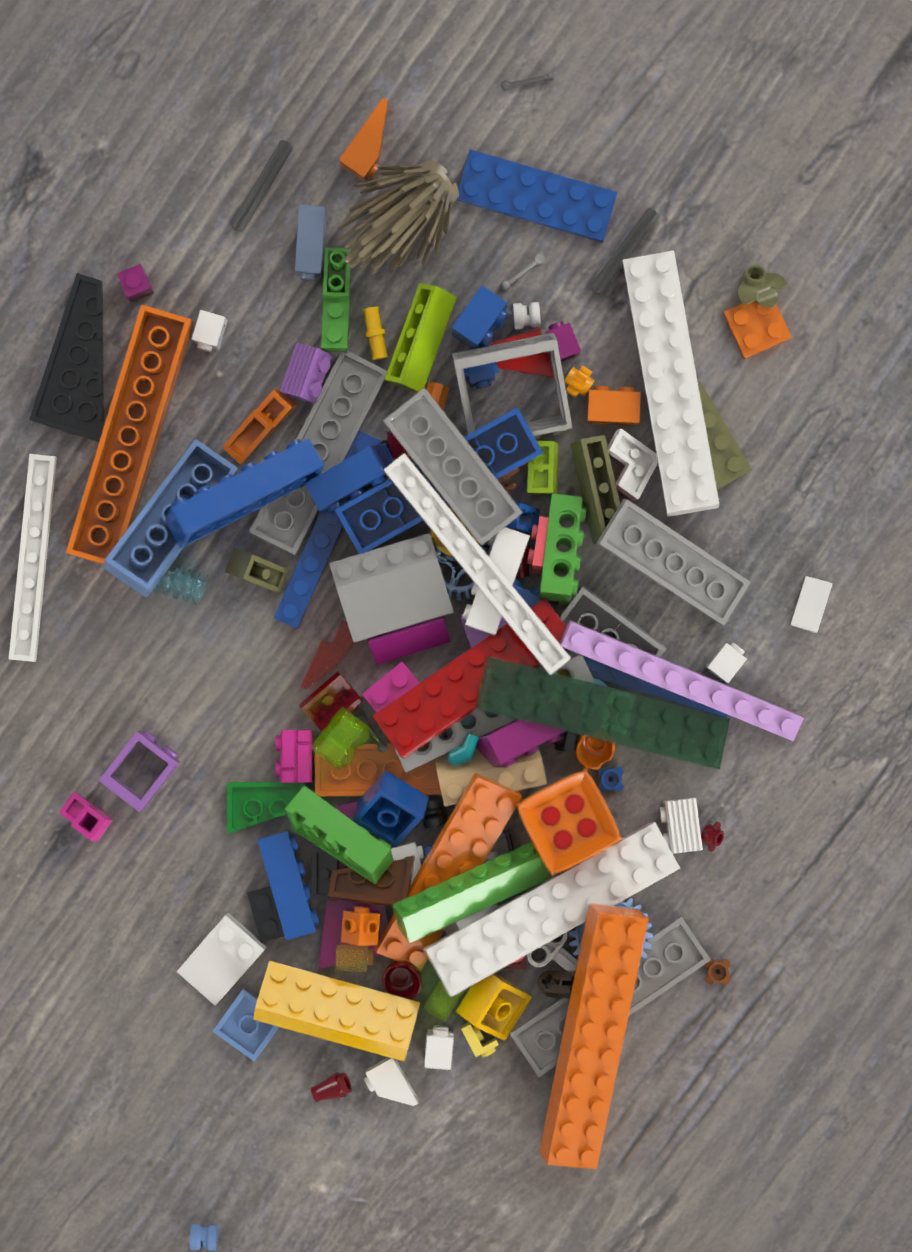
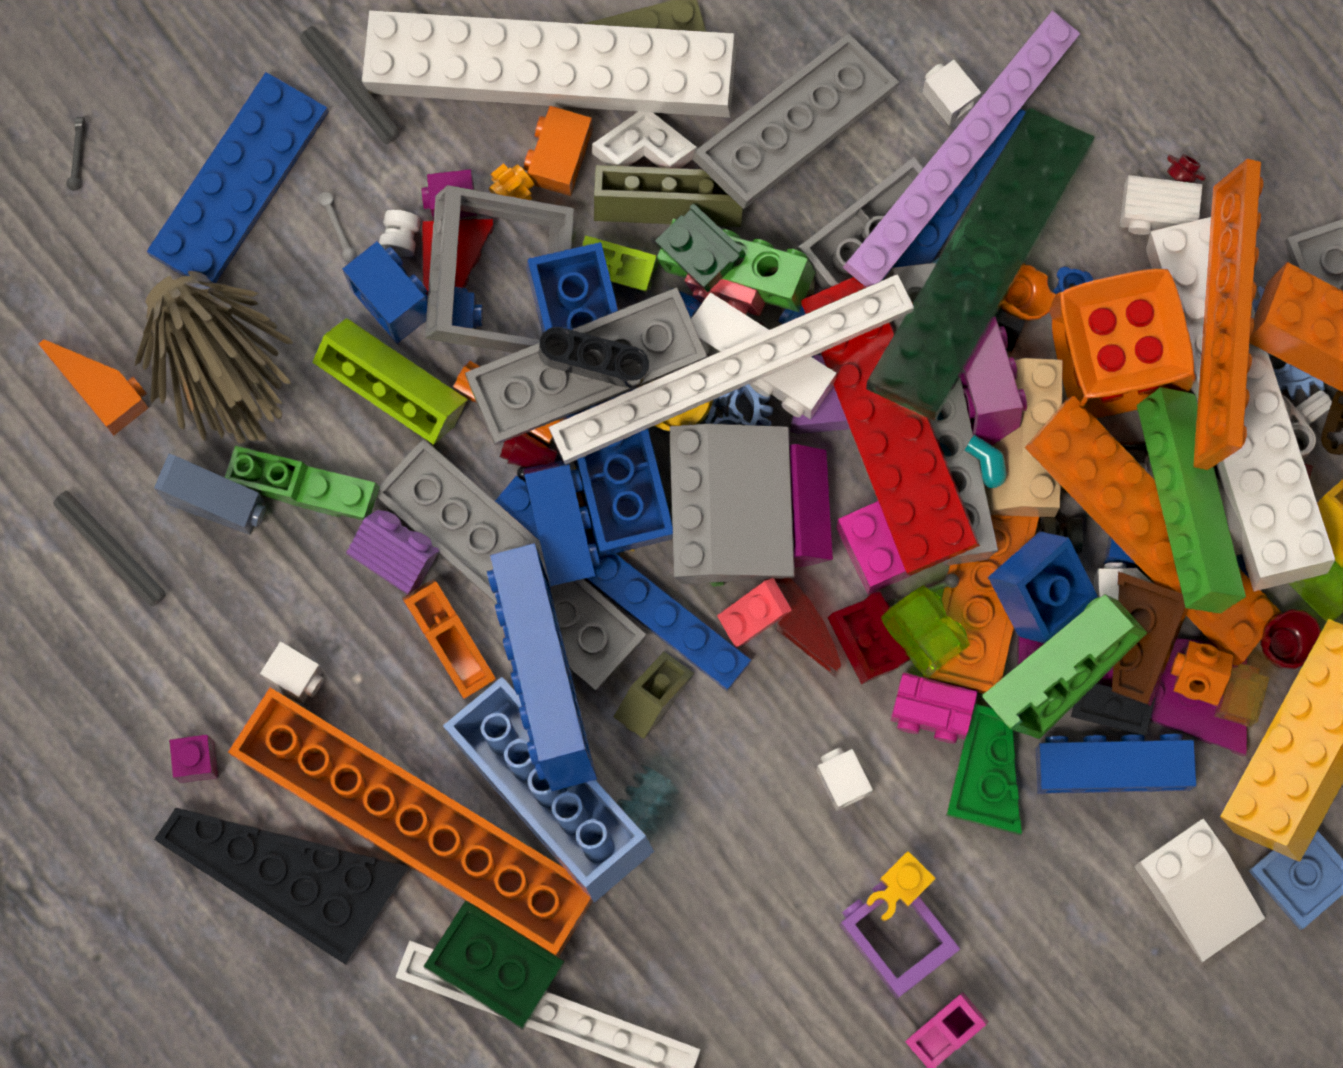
camera: 75 degrees left, 10 degrees down
(50, 514) = (493, 965): none -> dark green plate
(172, 765) = (903, 882): none -> yellow plate
(233, 709) = (843, 778): none -> white brick
(265, 914) = (1149, 809): black plate -> none
(326, 622) = (754, 612): none -> coral plate
(375, 333) = (364, 444): yellow pin -> none
(450, 457) = (578, 343): none -> black beam
(563, 520) = (700, 248): none -> plate
(600, 886) = (1228, 315): none -> orange plate

